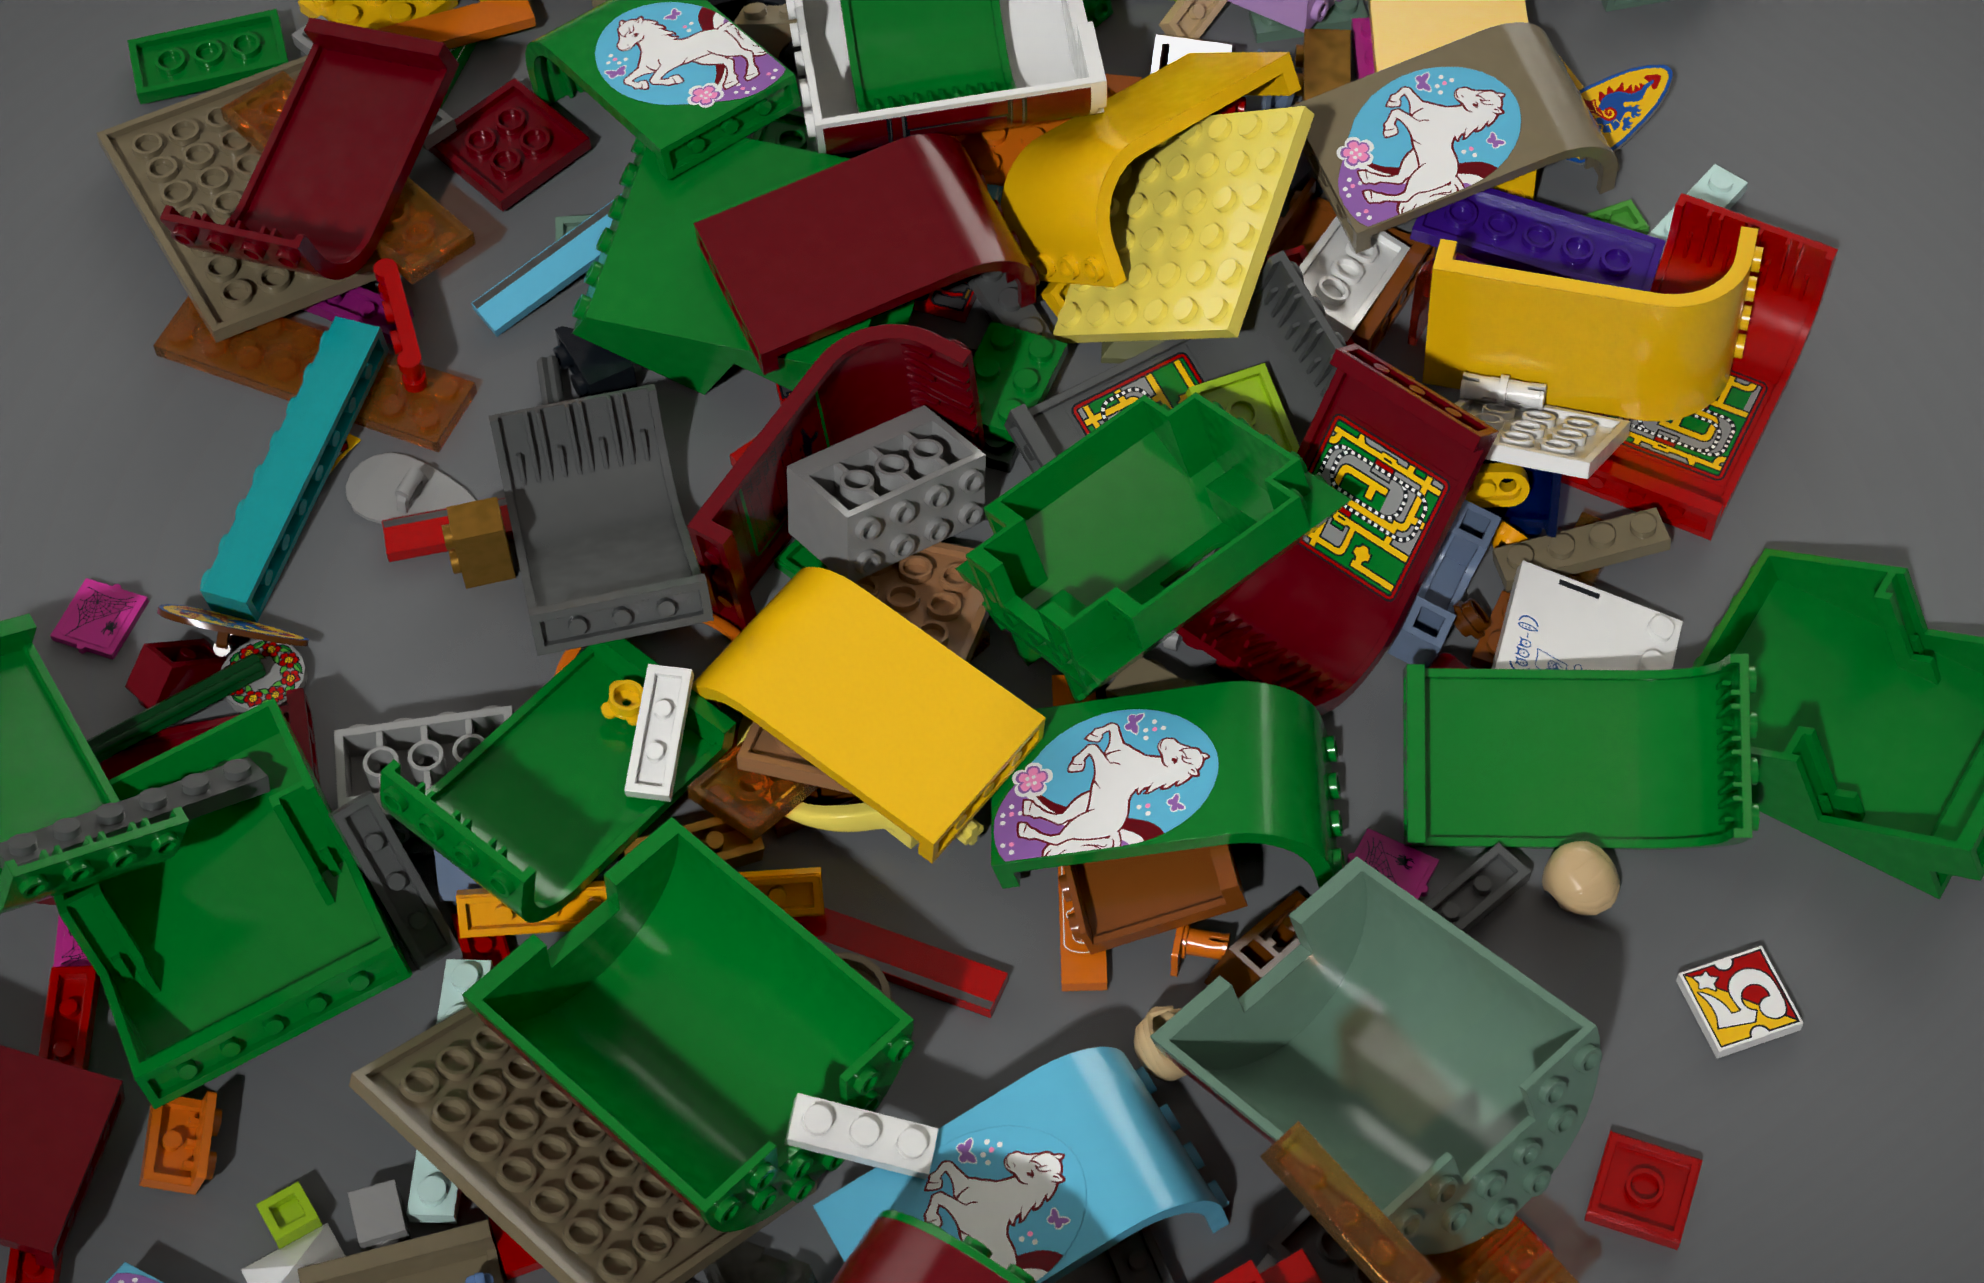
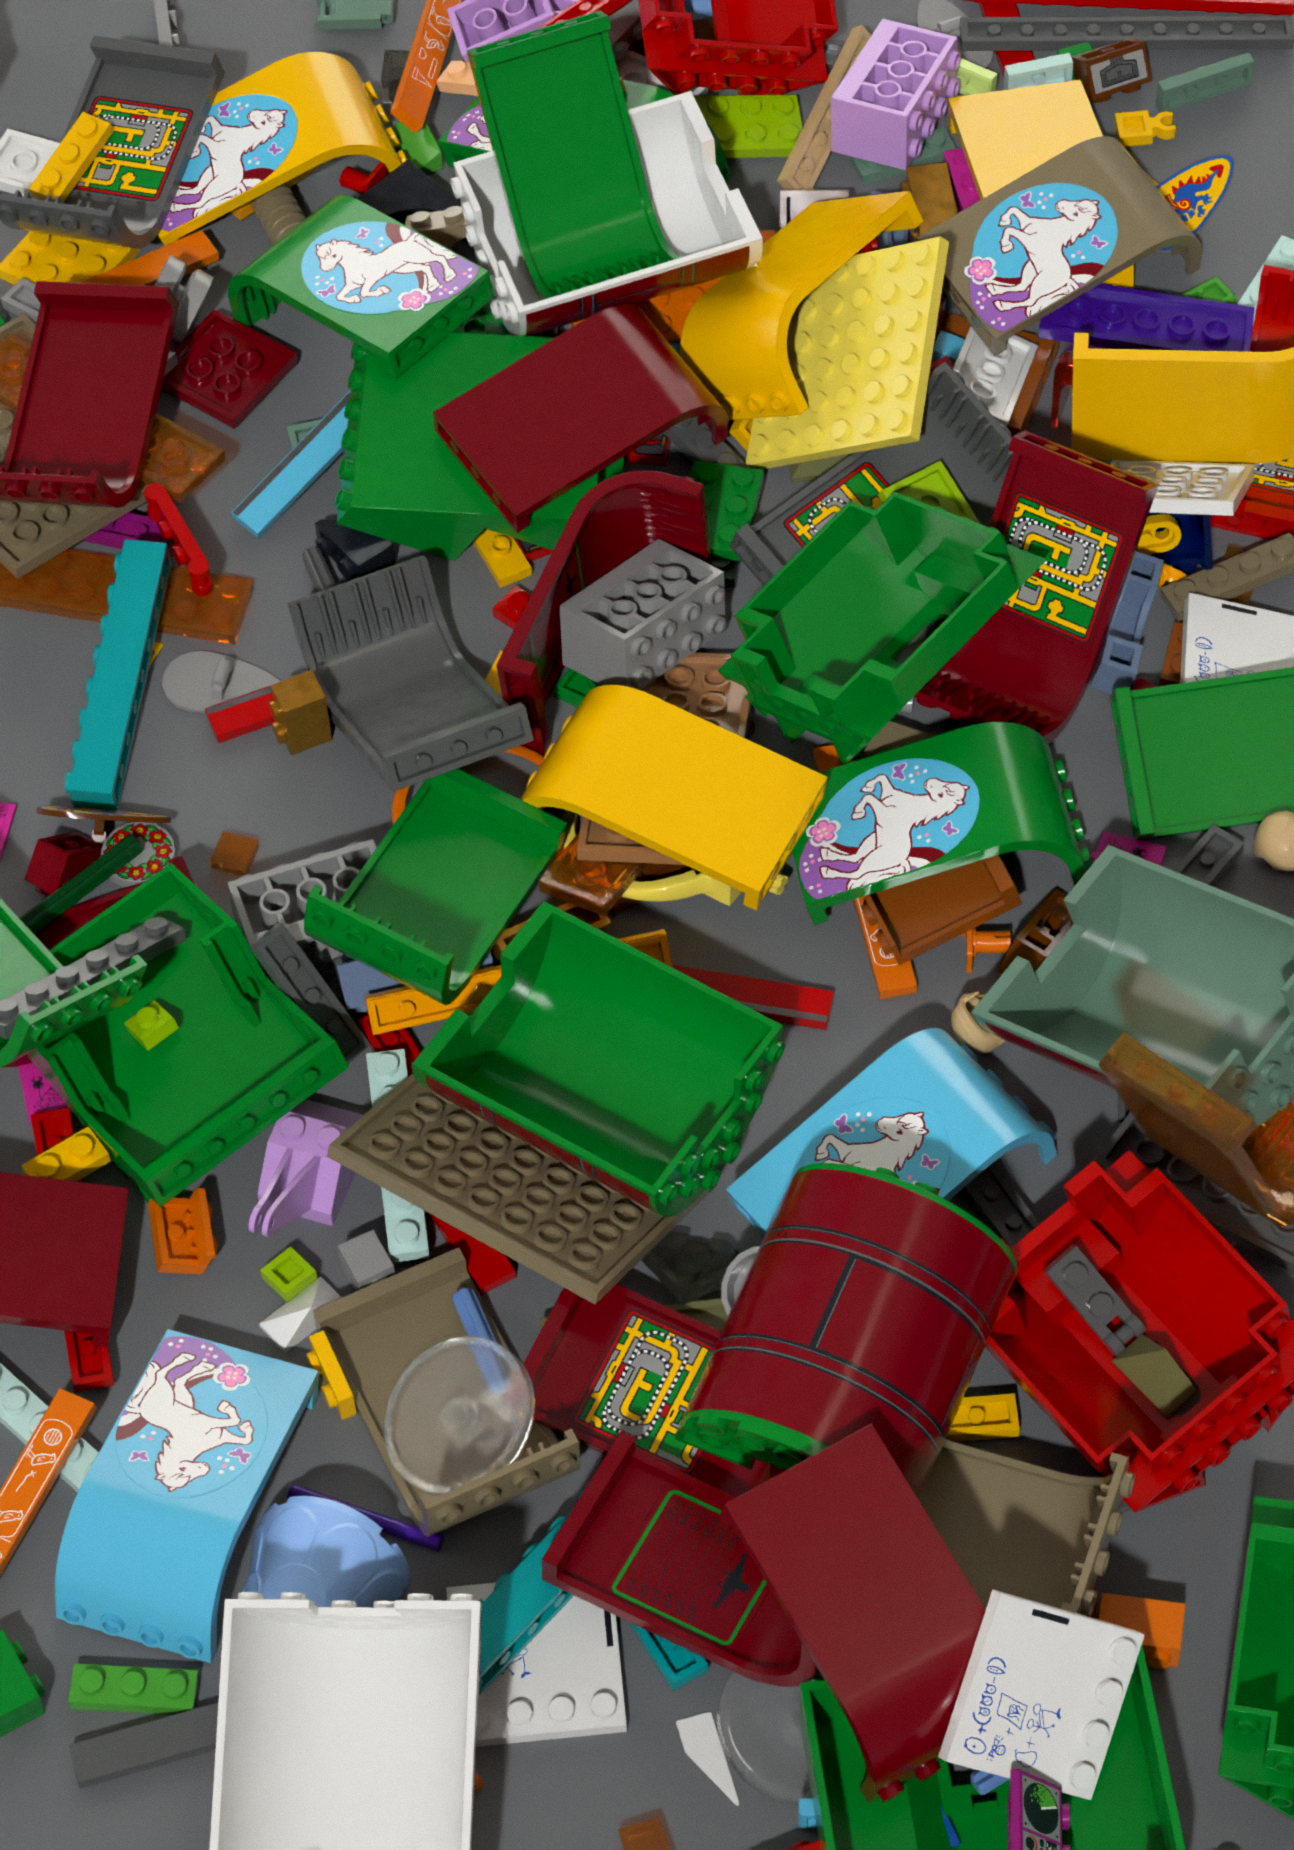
camera: 10 degrees left, 0 degrees up
(72, 1032) = (70, 1158): none -> yellow plate
(207, 885) = (151, 1025): none -> lime plate
(317, 1095) = (296, 1170): none -> lavender slope
(370, 693) = (234, 853): none -> clear orange tile
(478, 62) = (190, 297): none -> light grey wheel
(623, 691) = (472, 811): yellow plate -> none
(659, 732) = (507, 839): white plate -> none
(755, 397) = (502, 557): none -> yellow plate
(861, 1136) = (757, 1124): white plate -> none
(1305, 233) = (947, 345): none -> medium azure tile
(1471, 618) = (1154, 647): reddish brown plate -> none
(1503, 391) = (1143, 454): white pin -> none
(1576, 23) = (1139, 129): none -> yellow plate

